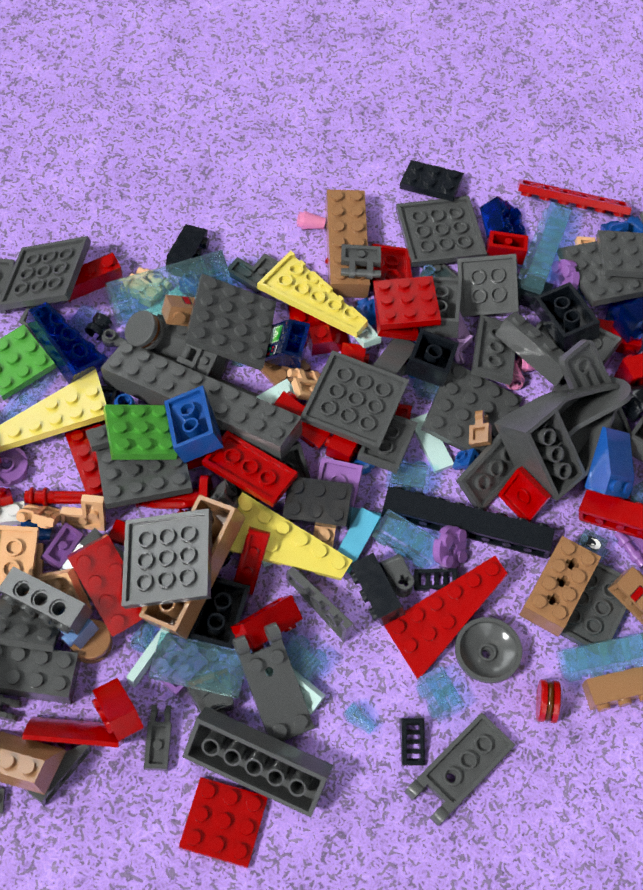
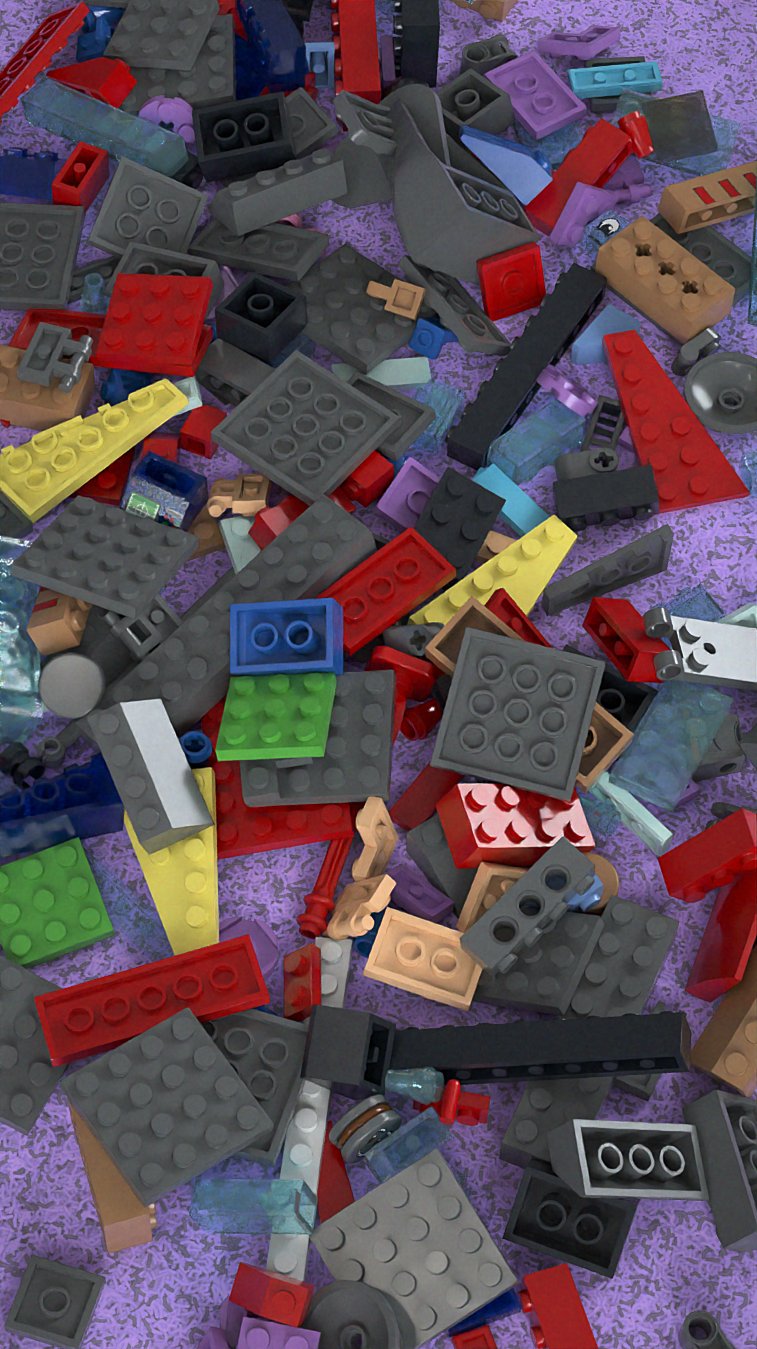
camera: 70 degrees left, 5 degrees down
(88, 379) = (150, 773): none -> dark grey slope
(512, 561) = (589, 345): none -> medium blue slope
(525, 626) = (702, 345): none -> dark grey plate
(575, 233) = (98, 78): none -> red slope
(600, 522) = (583, 206): none -> medium lavender plate

